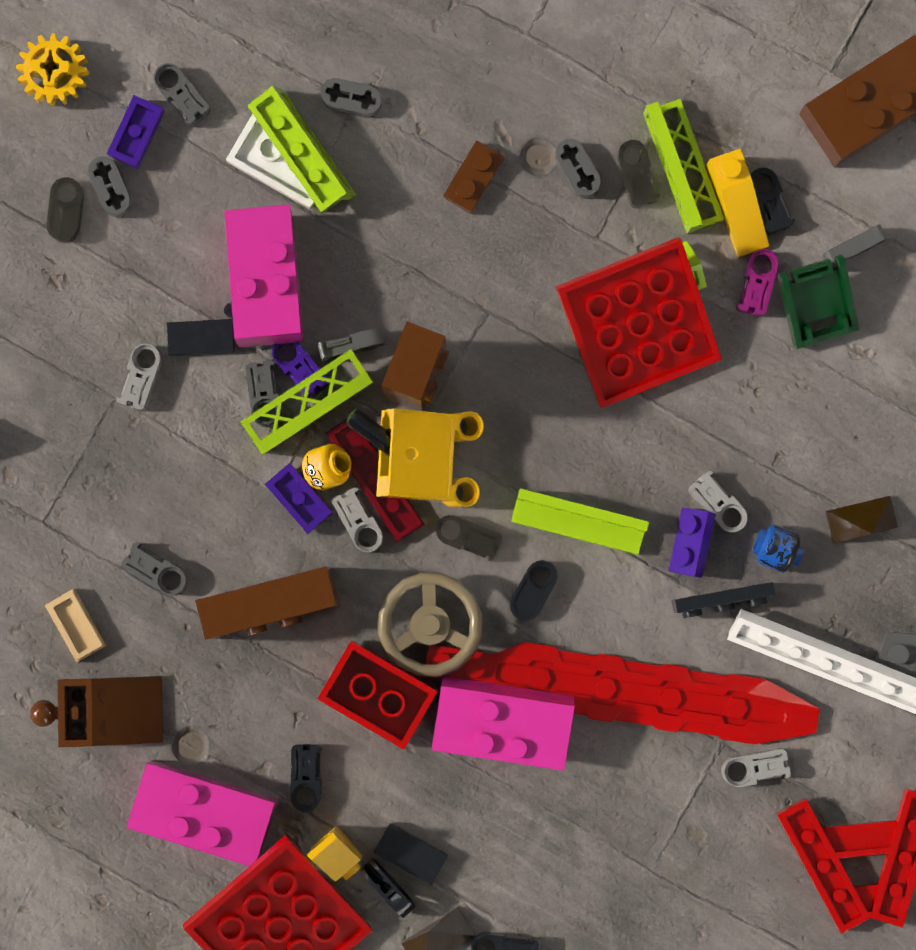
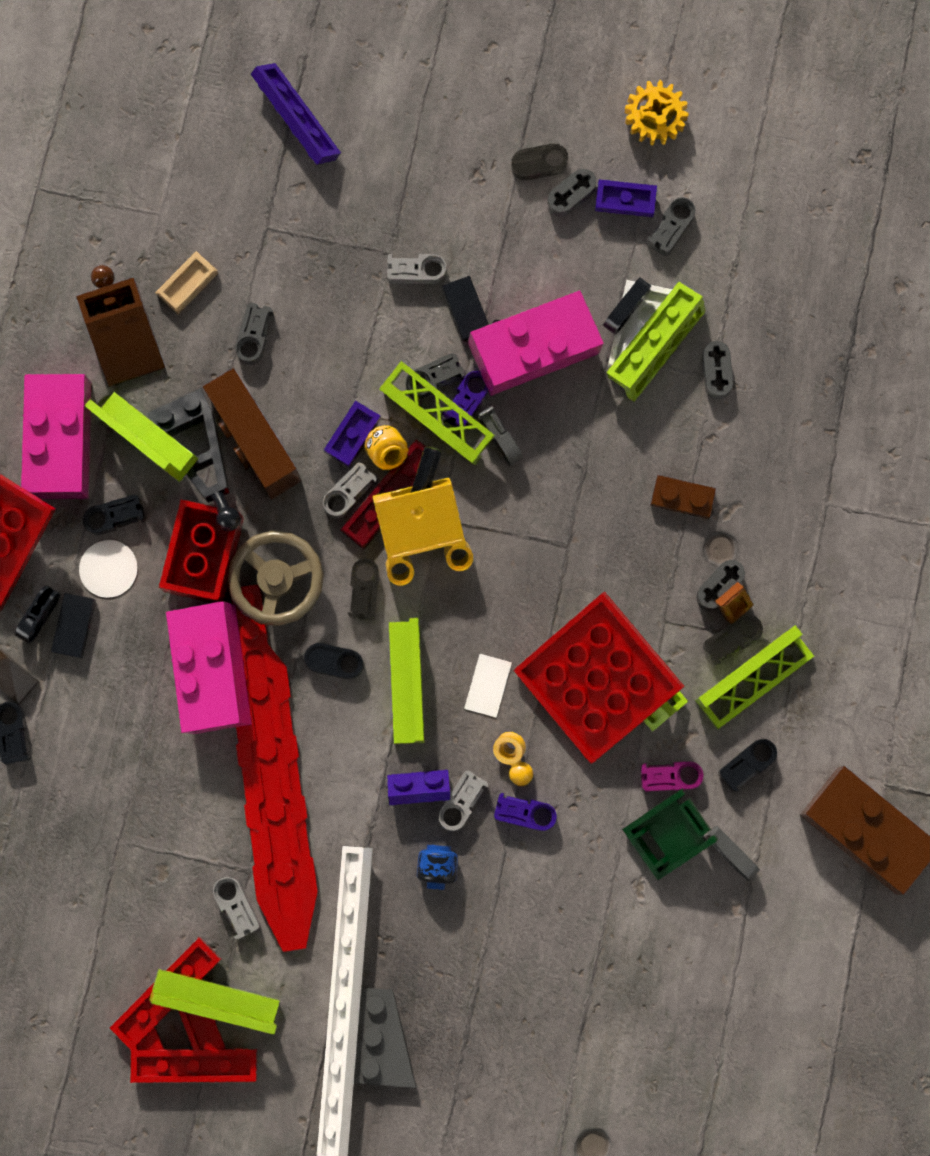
camera: 75 degrees right, 5 degrees down
(221, 673) = (182, 415): none -> black plate
(233, 718) = (145, 435): none -> lime fence
(257, 167) = (627, 306): none -> black piece
(336, 855) = (52, 559): yellow slope -> none
(360, 799) = (108, 568): none -> white sticker
(415, 367) = (492, 490): reddish brown brick -> none
(602, 160) = (734, 603): none -> dark orange tile
(606, 440) = (487, 685): none -> white sticker
(706, 434) = (520, 772): none -> yellow plate
(723, 600) = (375, 830): black plate -> none
(738, 202) = (736, 735): yellow slope -> none
(749, 446) = (521, 813): none -> dark purple piece
(849, 817) = (214, 1001): none -> lime fence
(861, 519) = (487, 936): dark brown slope -> none

